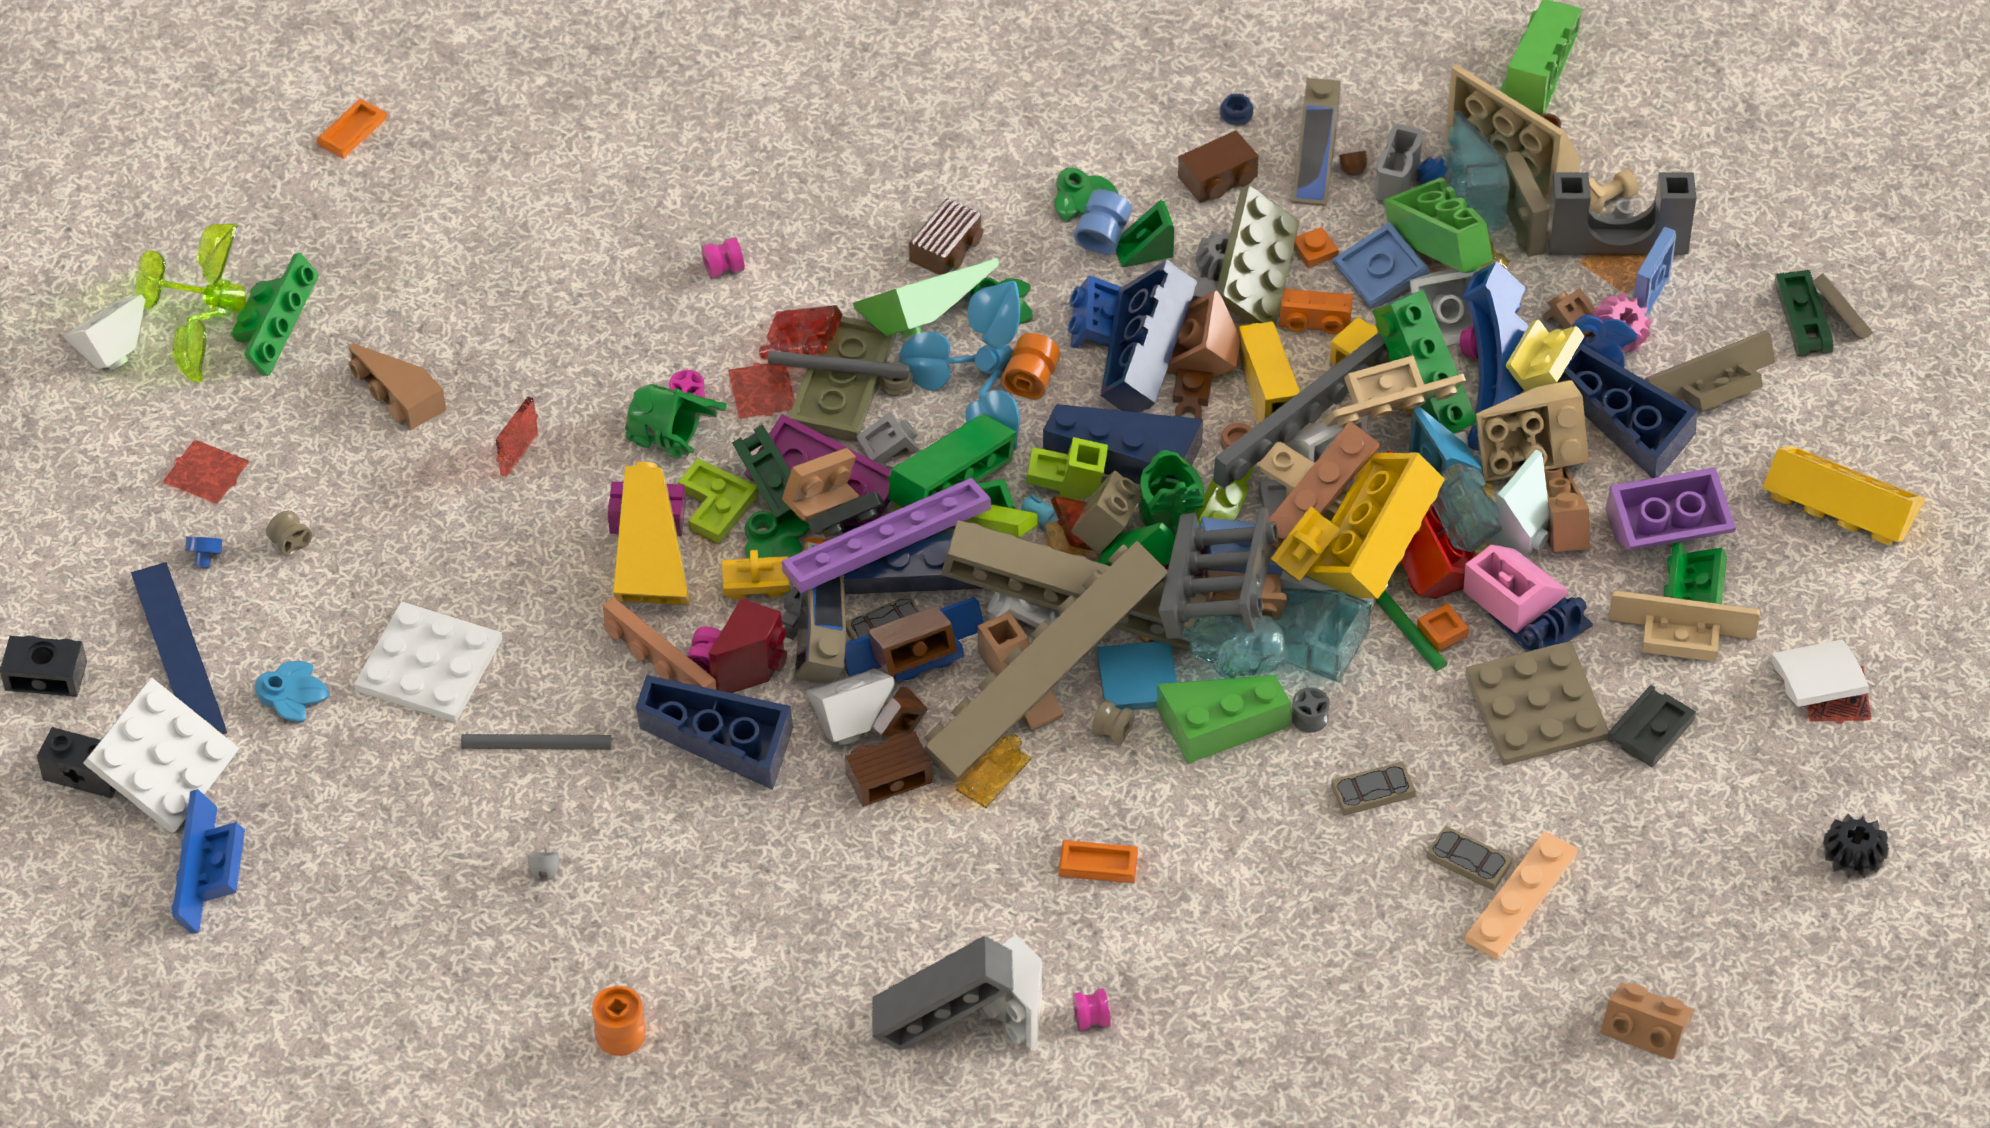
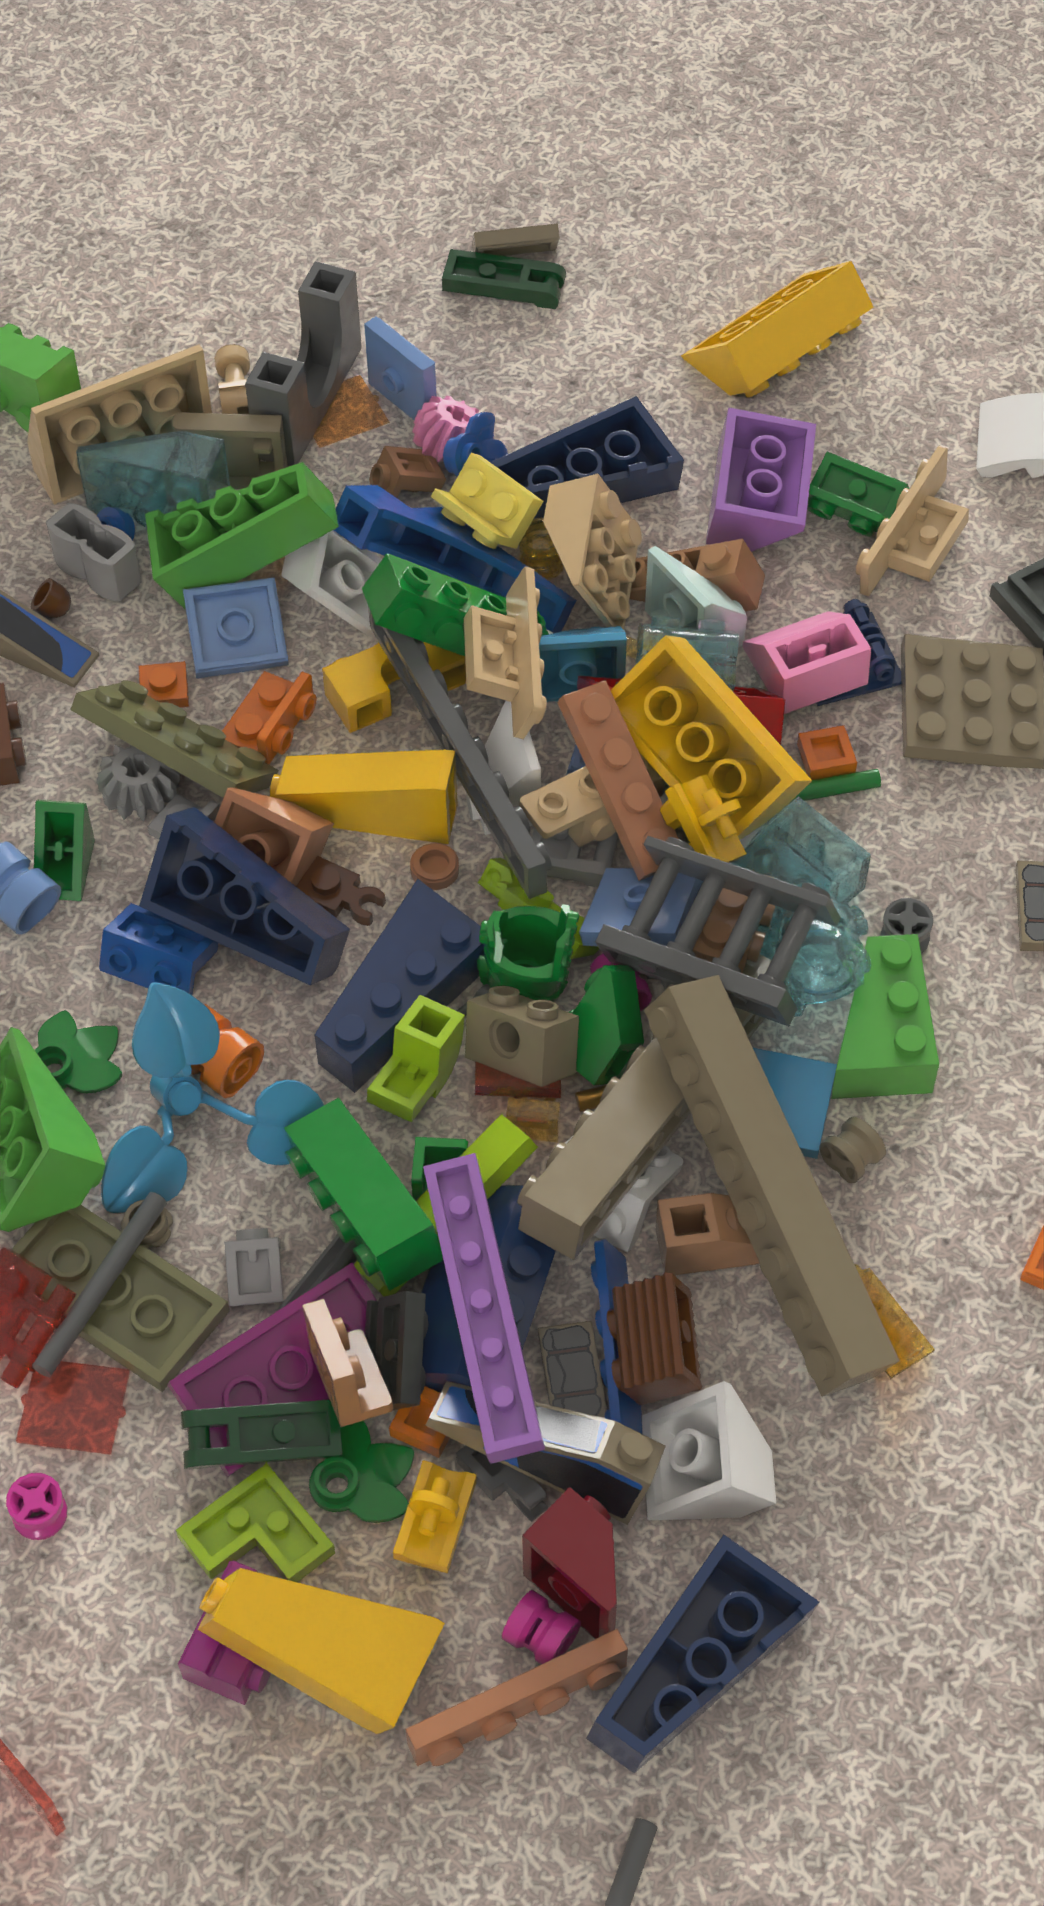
camera: 70 degrees left, 5 degrees up
(670, 415) = (81, 1546): green helmet -> none
(888, 768) = (837, 1449): reddish brown brick -> none
(900, 713) = (761, 1399): reddish brown bracket -> none
(1044, 511) = (467, 1118): medium azure pin -> none
(1718, 374) = (568, 376): dark tan bracket -> none

